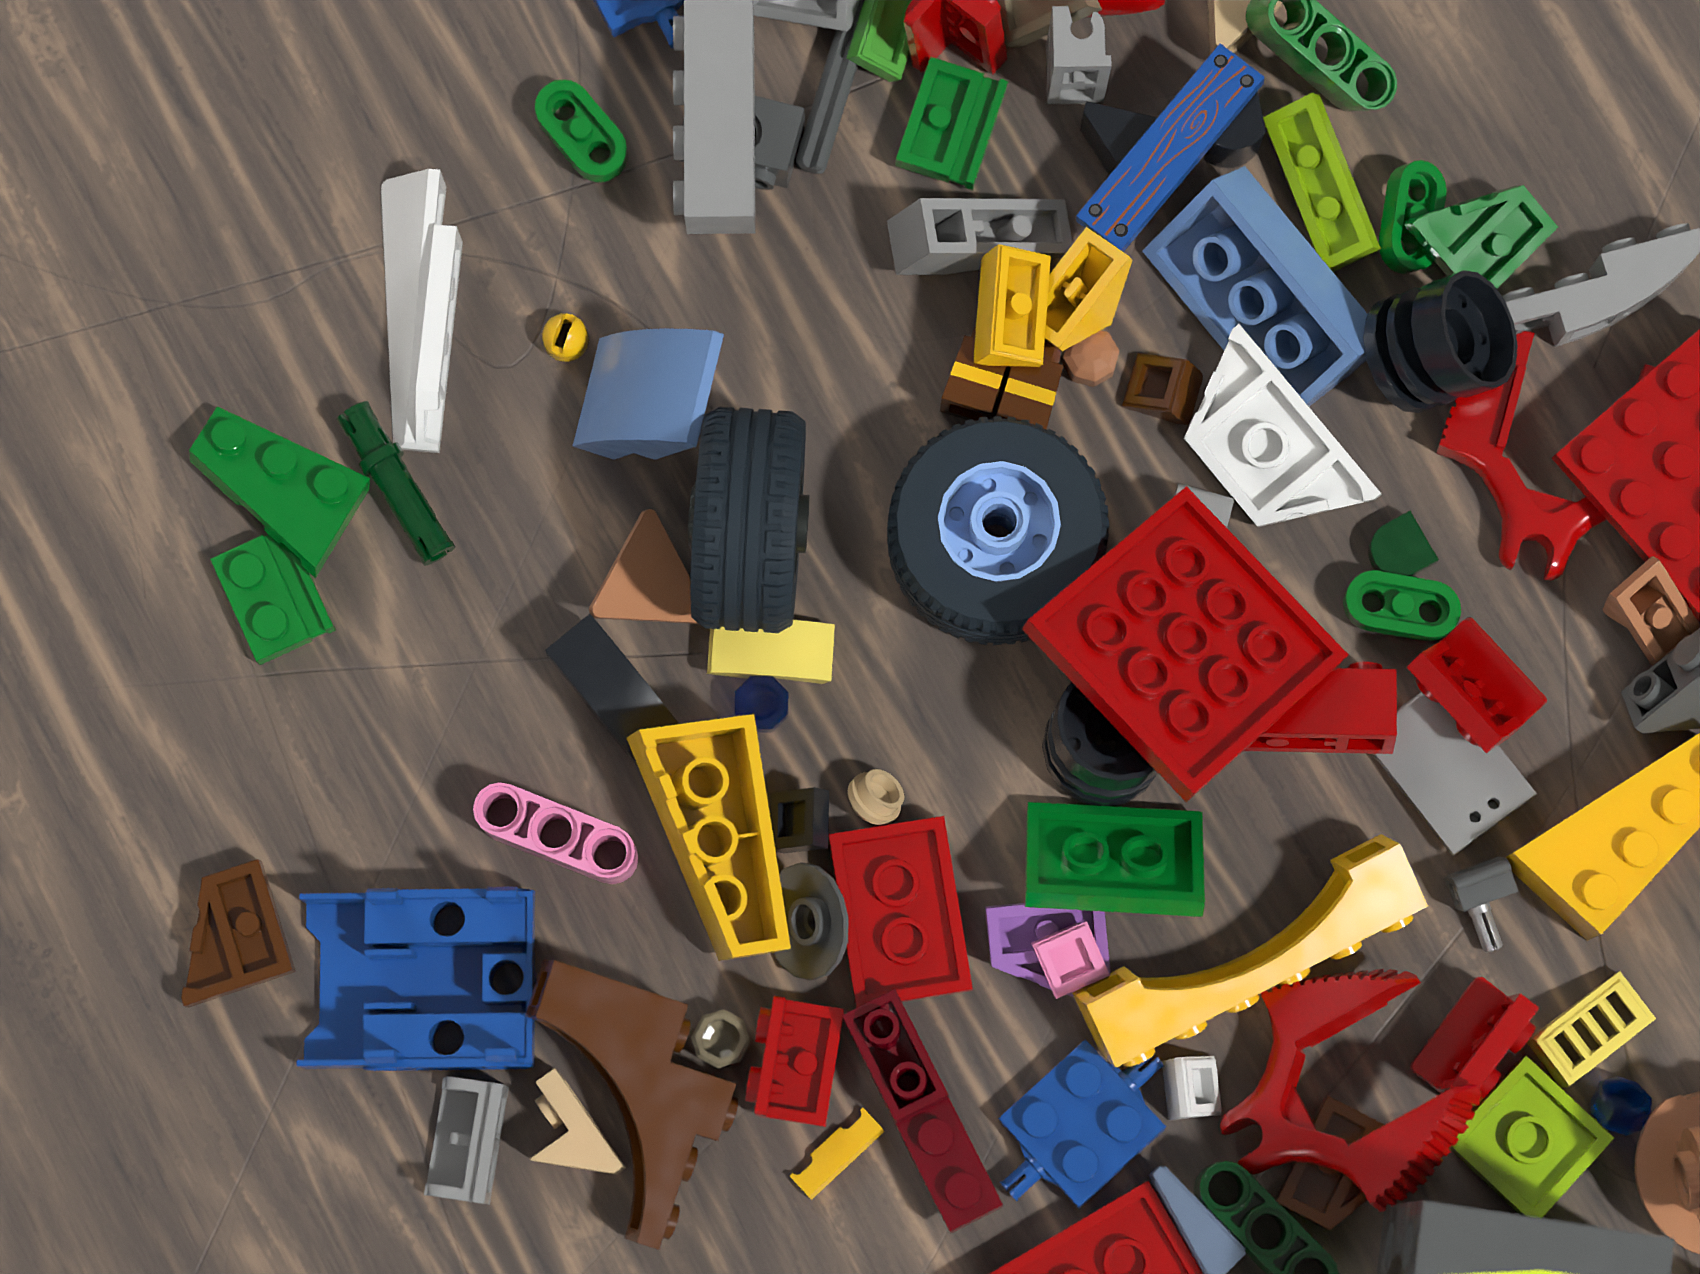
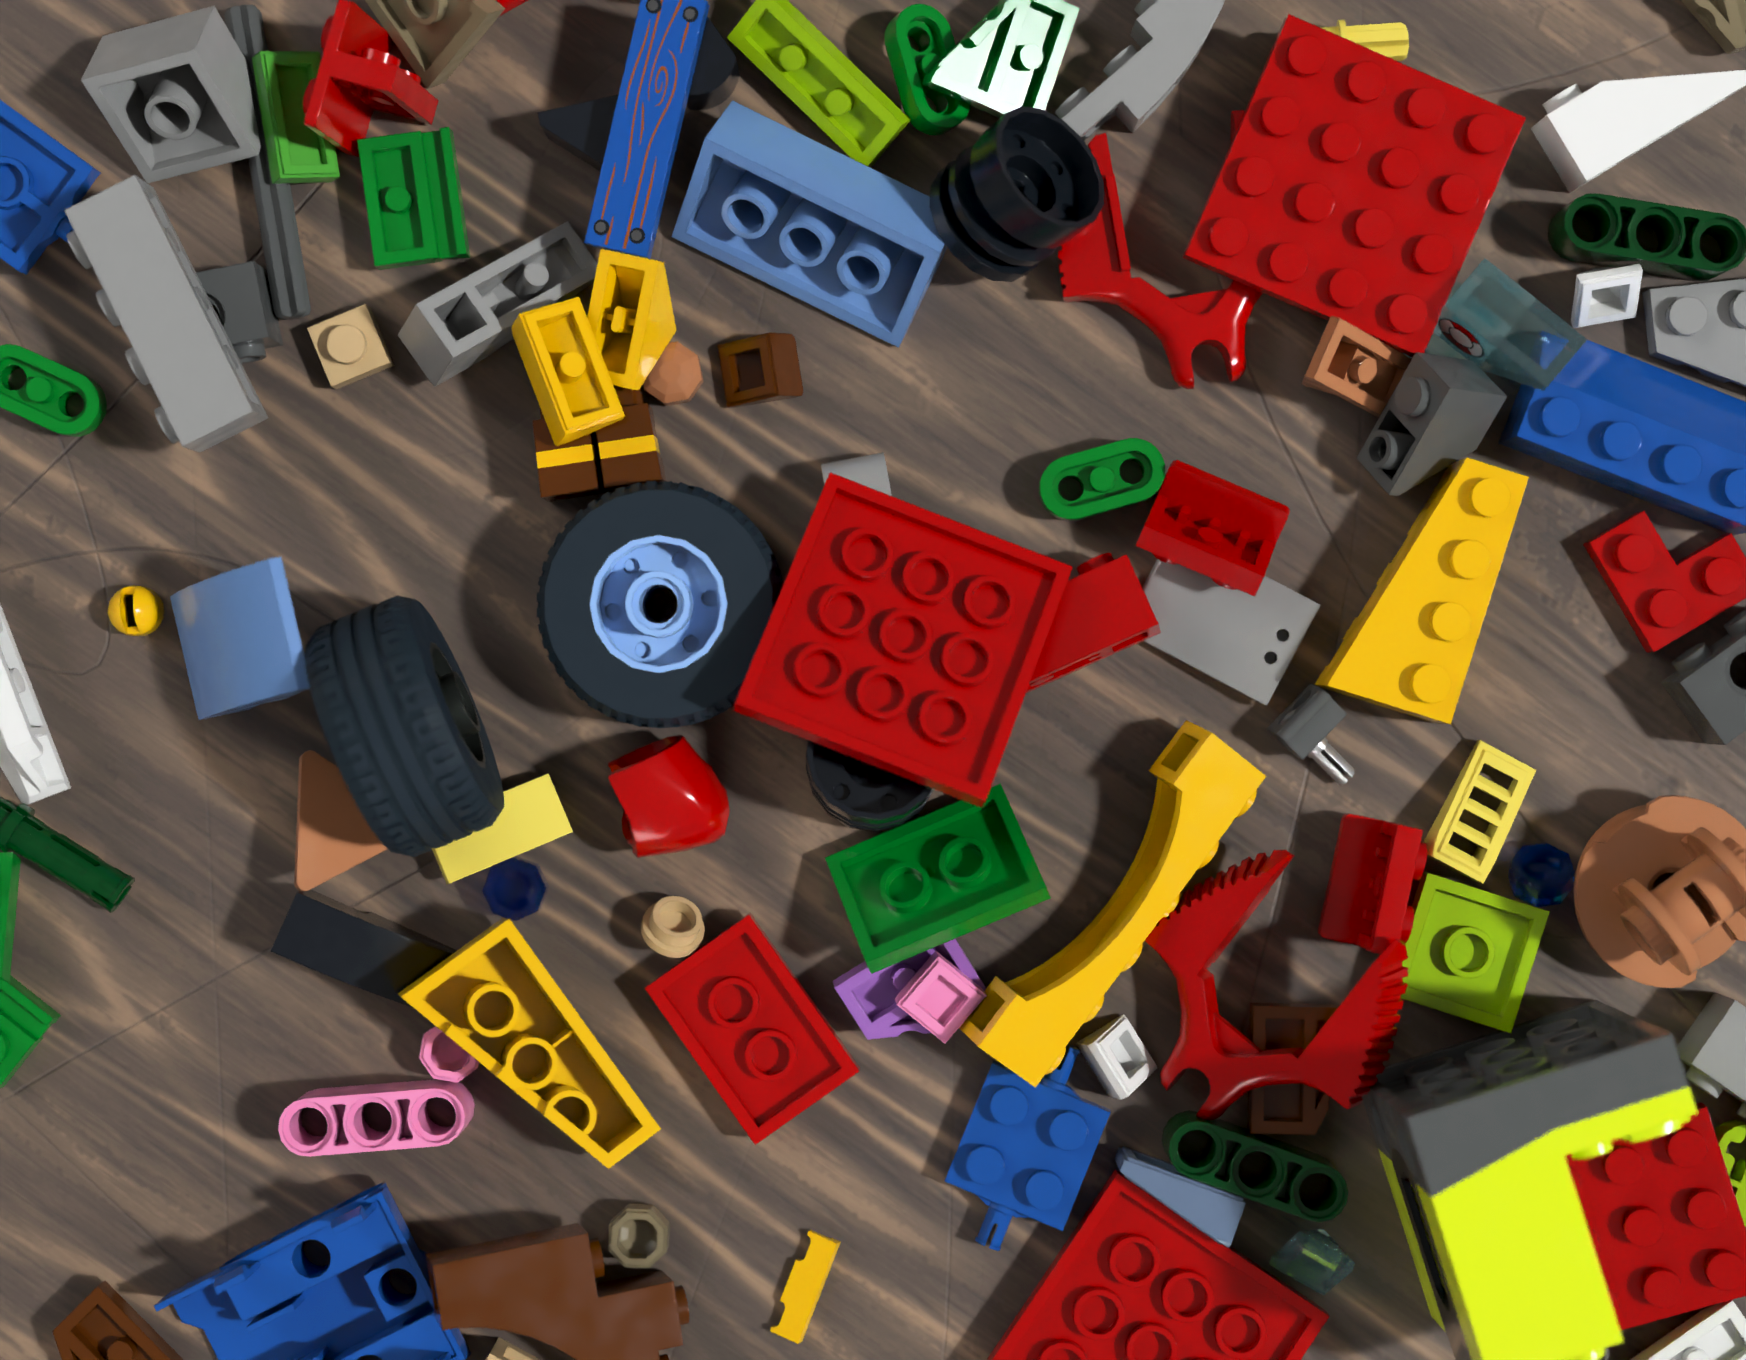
camera: 25 degrees left, 10 degrees up
(636, 812) = (444, 1057): none -> bright pink tile
(796, 1061) = (721, 1224): red bracket -> none
(800, 819) = (609, 987): black plate -> none
(814, 920) = (667, 1085): dark grey dish -> none
(842, 214) = (350, 346): none -> tan plate
(922, 1111) = (868, 1213): dark red slope -> none
(925, 691) = (668, 798): none -> red piece
(1075, 66) = (510, 79): light grey hinge -> none
(1270, 442) = (893, 377): white wing -> none
(1401, 547) = (1073, 420): dark green tile -> none

